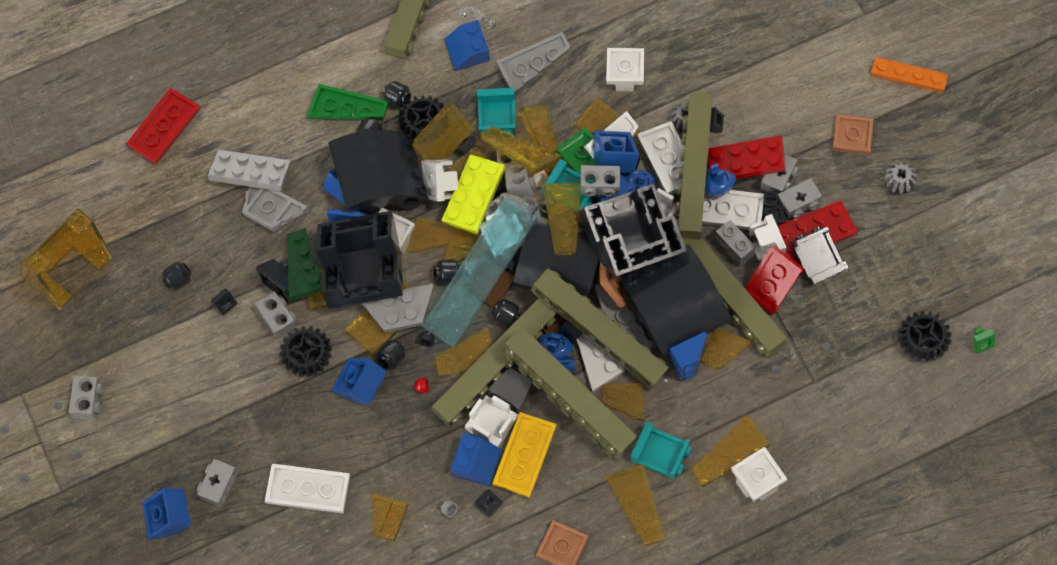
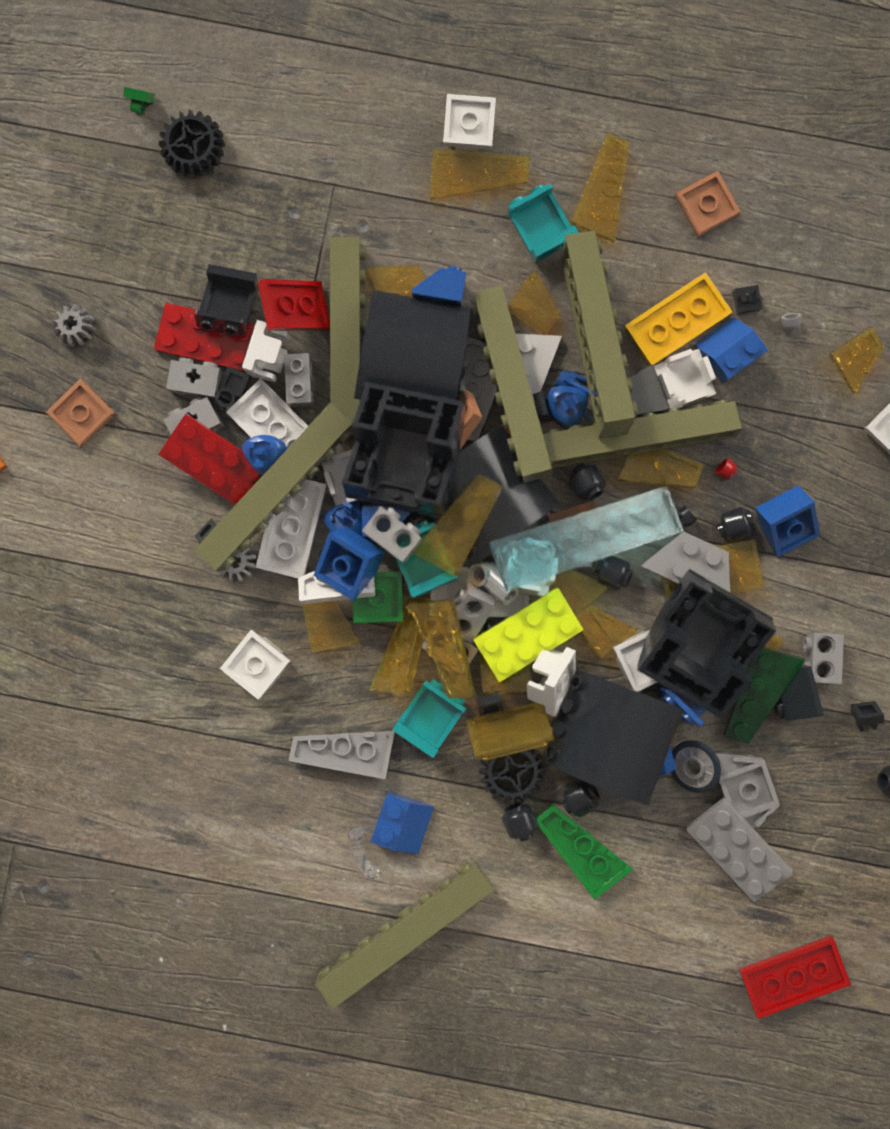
camera: 145 degrees left, 20 degrees up
(302, 193) = (707, 759): none -> wheel
(322, 351) = (839, 603): black gear -> none

